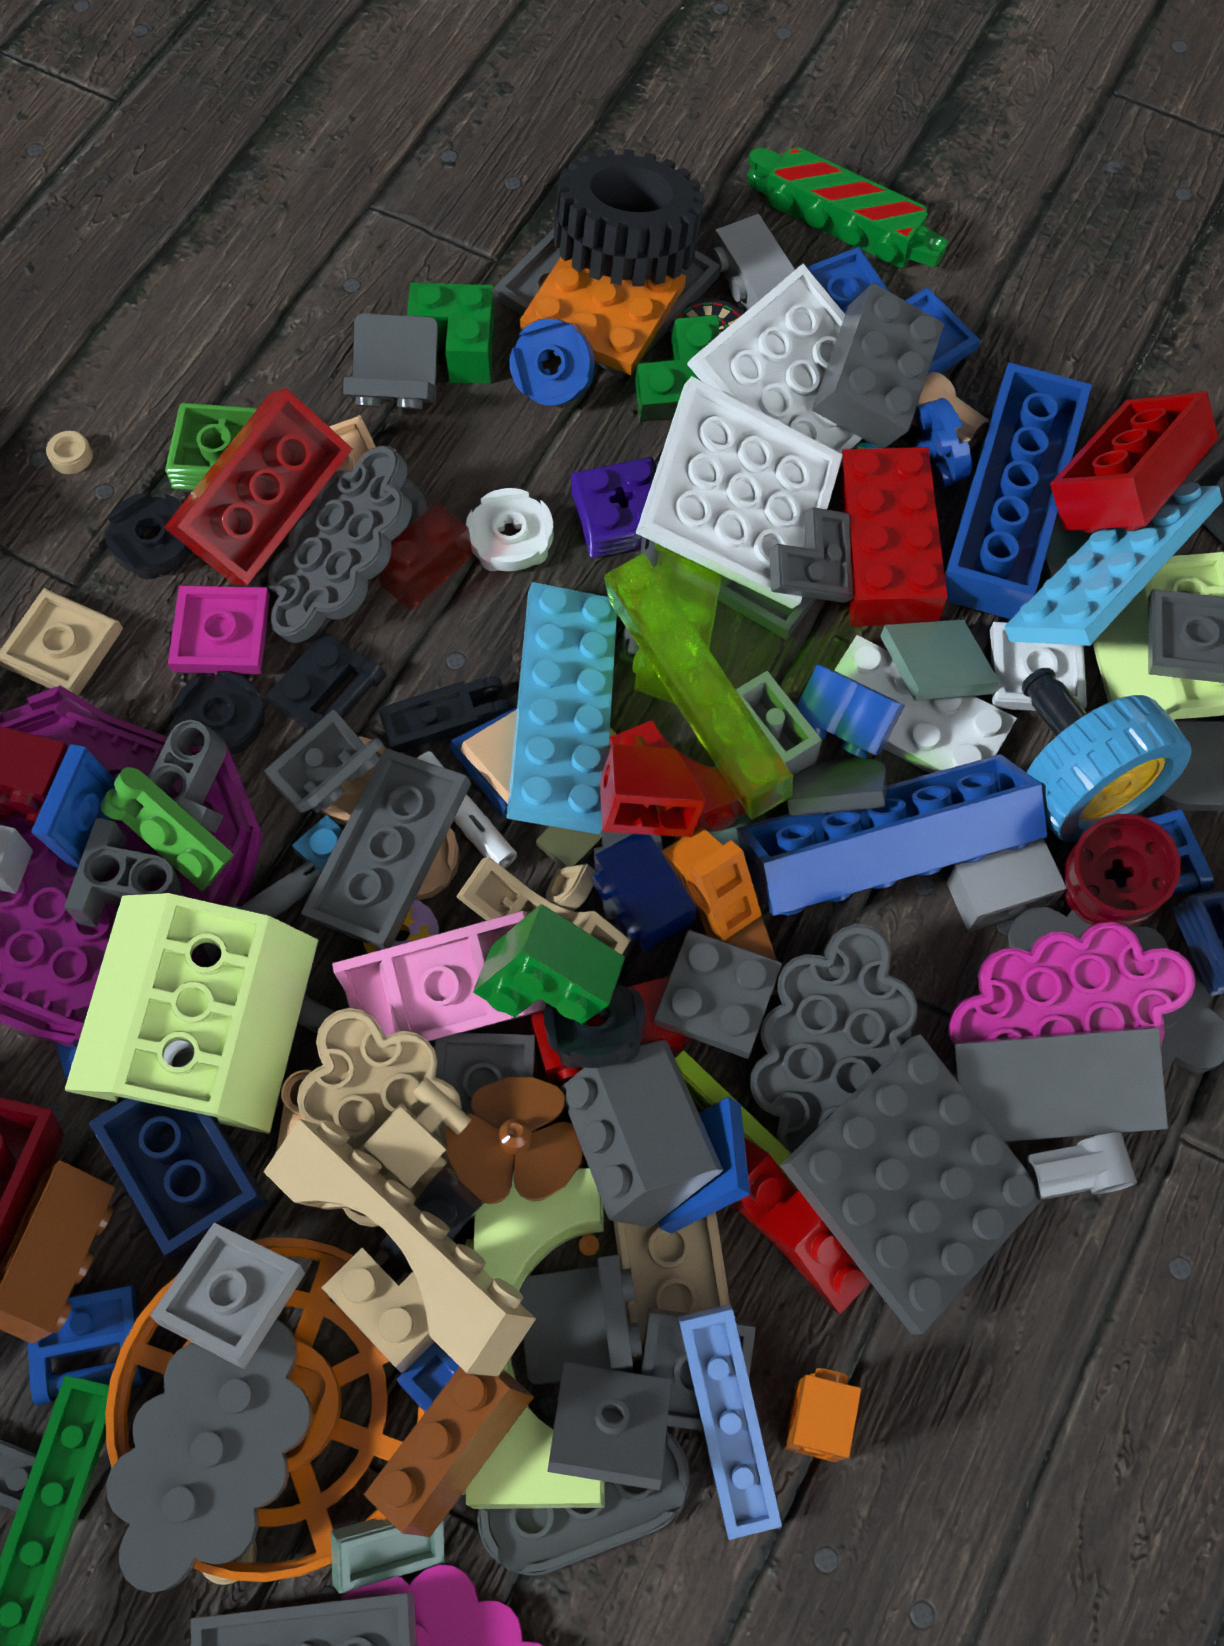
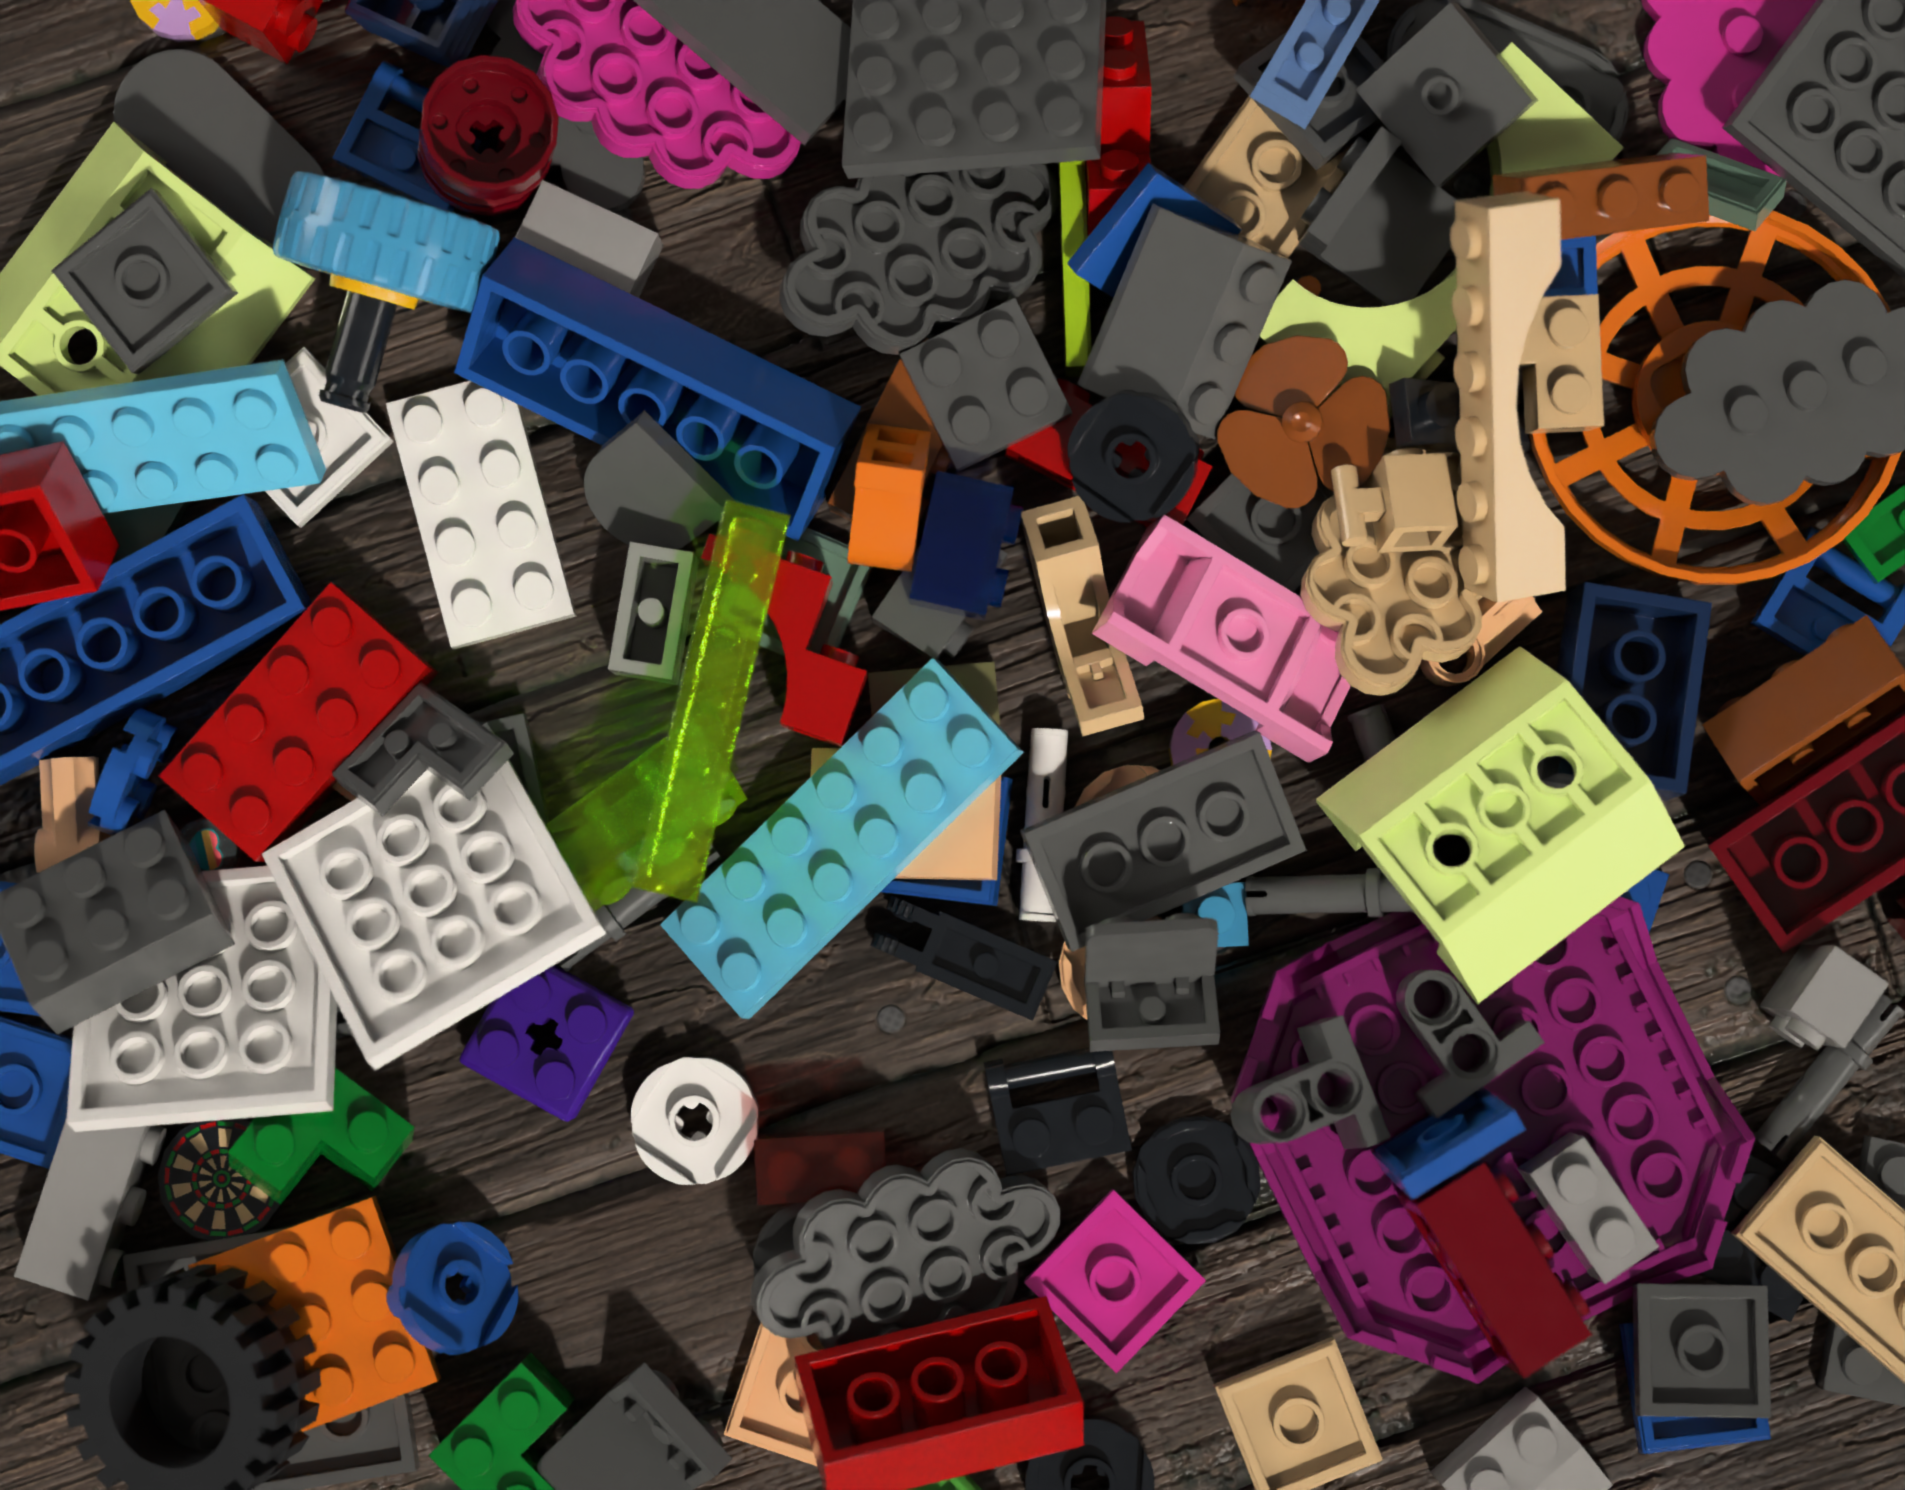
camera: 140 degrees left, 20 degrees up
(166, 827) = (1376, 1042): bright green plate -> none
(228, 1295) = (1685, 506): light grey plate -> none
(549, 962) = (1141, 533): green brick -> none
(570, 886) = (1016, 638): tan tile -> none
(648, 791) = (872, 632): red torso -> none
(849, 711) = (561, 556): blue brick -> none
(939, 659) = (401, 533): sand green tile -> none

